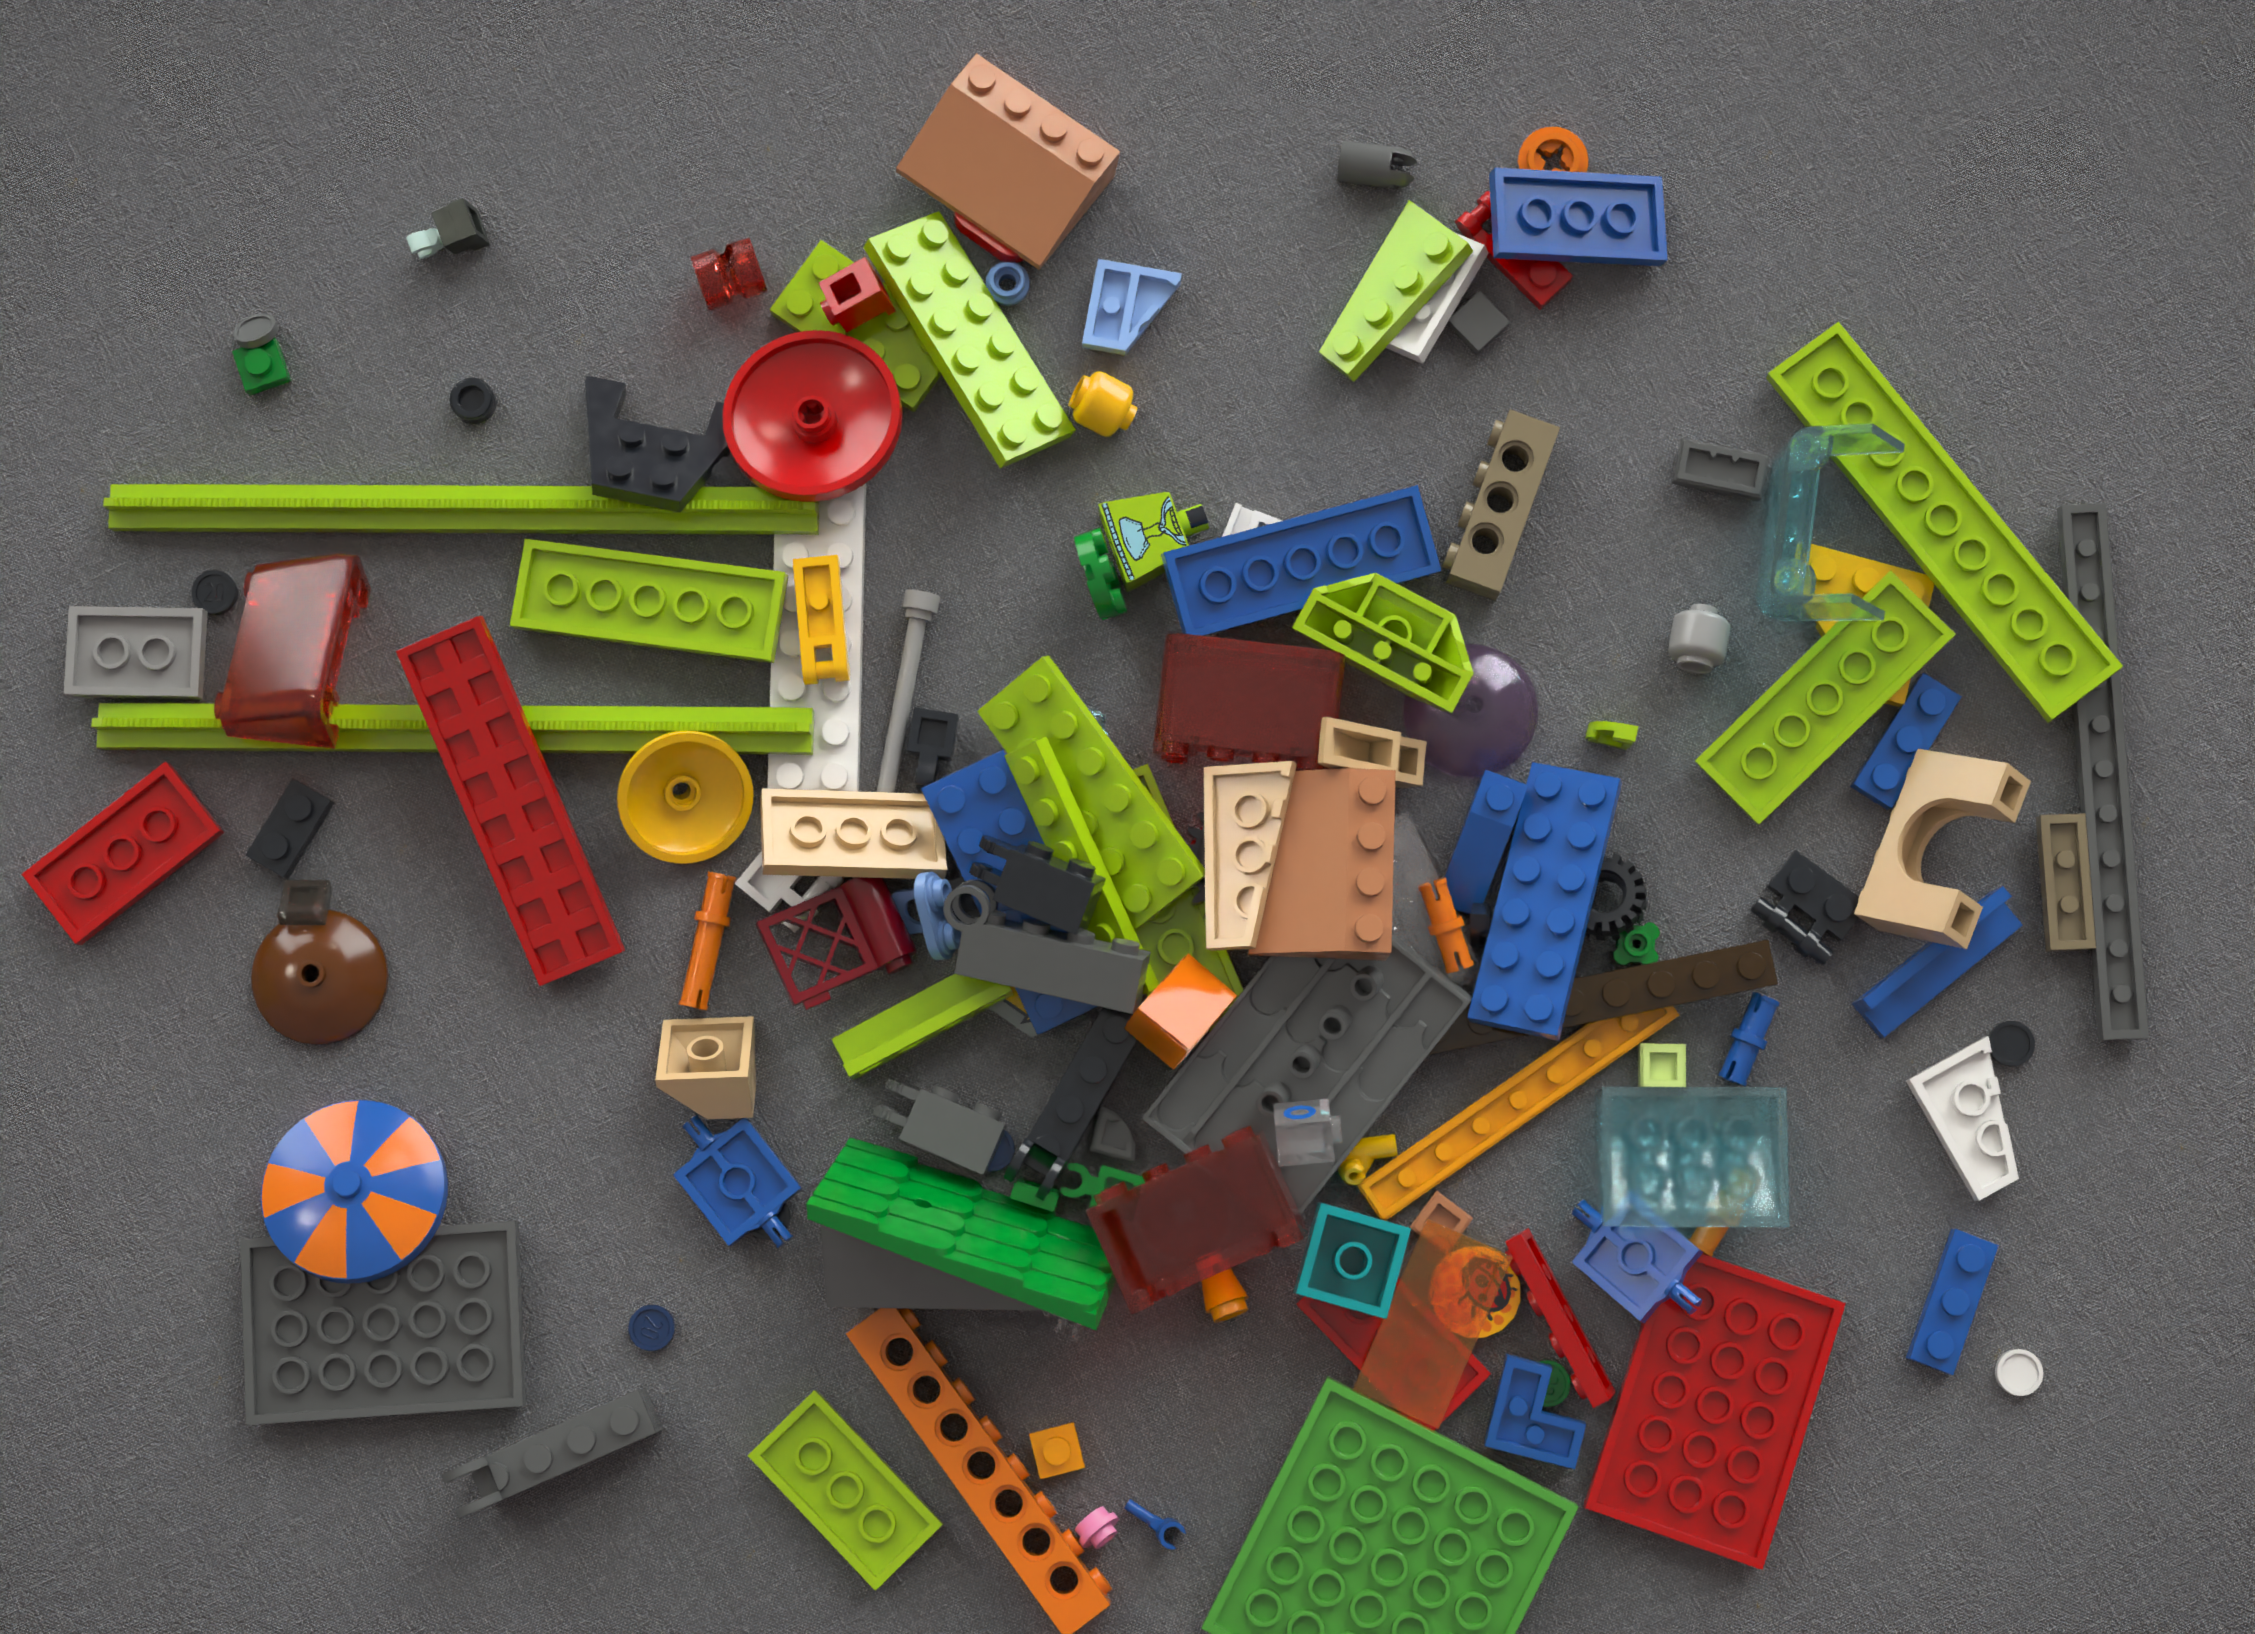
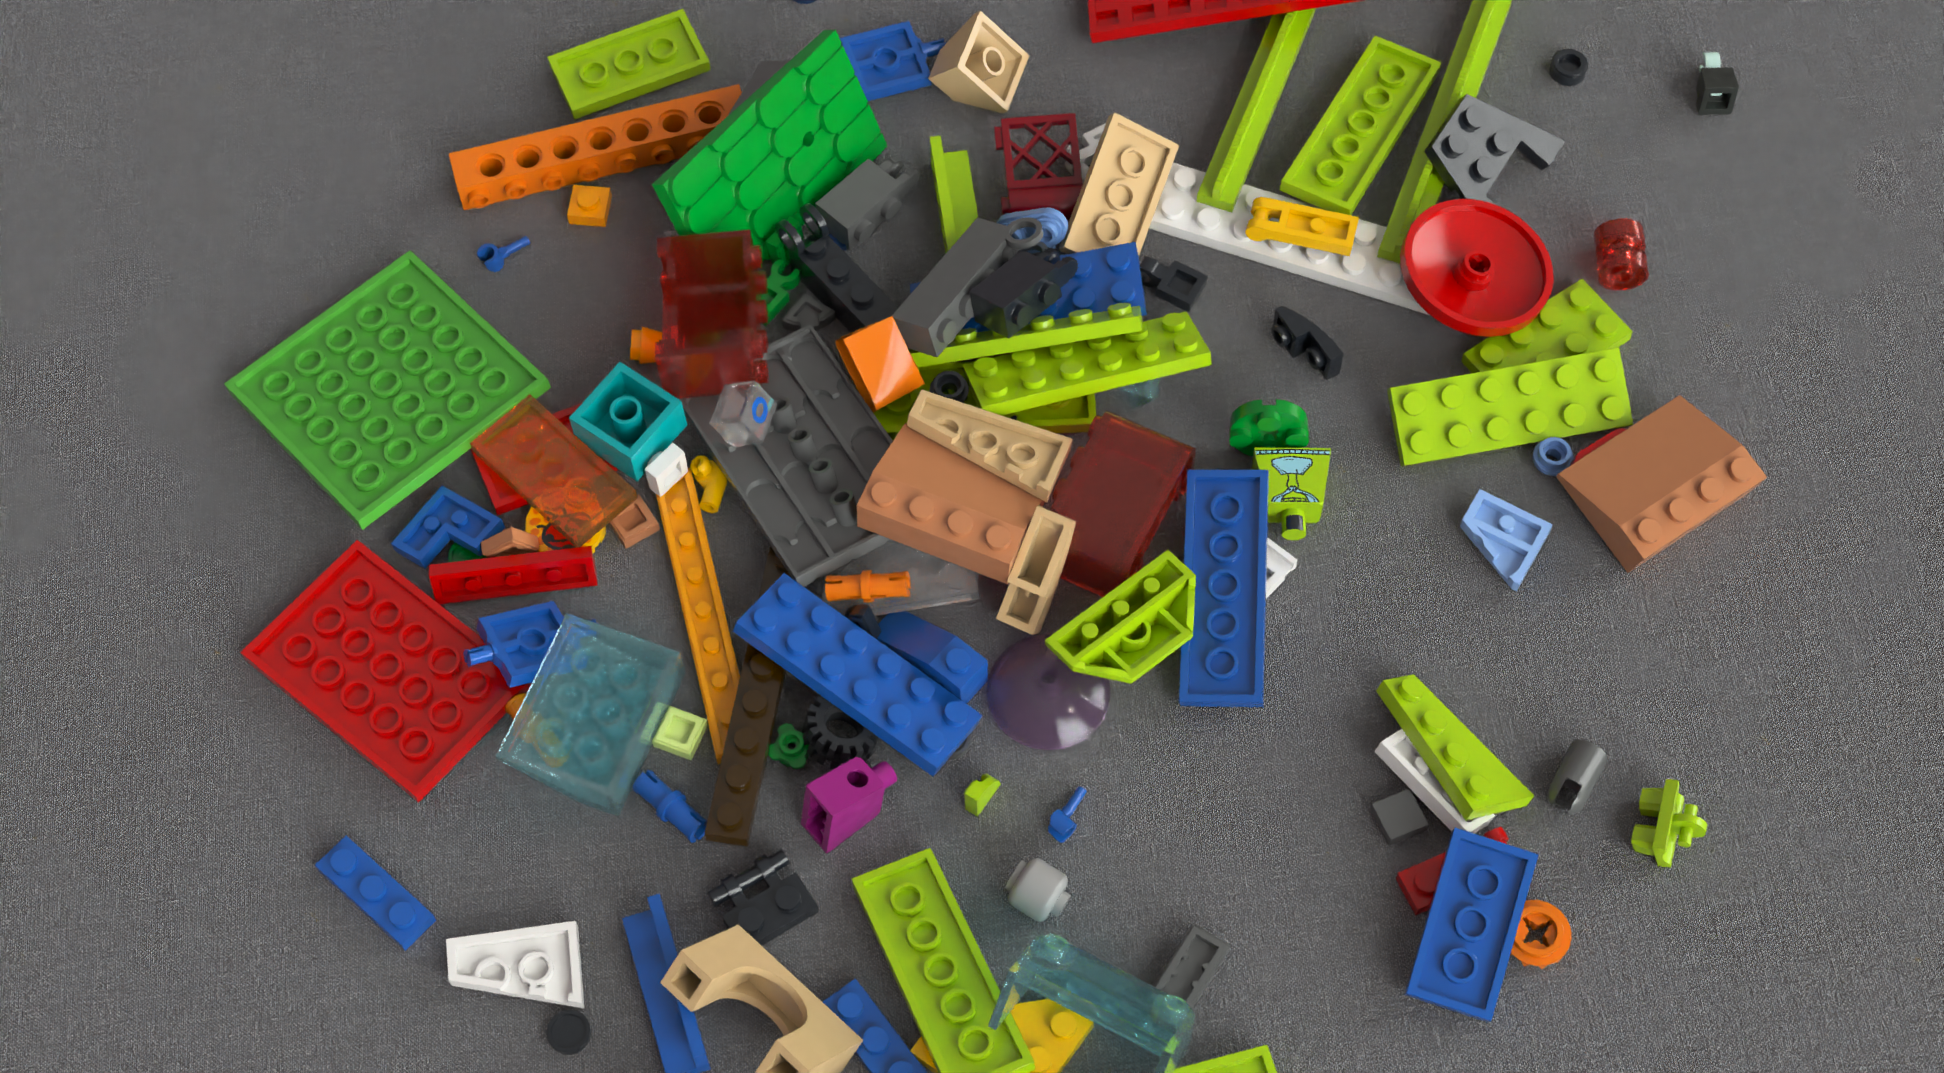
camera: 110 degrees right, 20 degrees down
(688, 824) = (1184, 89): yellow dish -> none
(707, 940) = (1090, 100): orange pin -> none
(855, 296) = (1571, 325): red brick -> none
(919, 611) = (1226, 279): light grey piece -> none
(955, 588) = (1302, 336): none -> black slope
(1097, 1528) = (518, 209): bright pink plate -> none
(1102, 404) = (1420, 488): yellow head -> none
(1175, 918) = (950, 381): none -> black plate
(1382, 1203) = (666, 469): none -> white plate
(1414, 70) = (1668, 807): none -> lime hips
(1532, 1334) = (510, 542): none -> nougat tile
(1533, 443) = (1228, 792): dark tan brick -> none
(1613, 647) = (1060, 825): none -> blue hand
(1695, 871) = (844, 801): none -> magenta torso
(2019, 1372) = (290, 927): white piece -> none

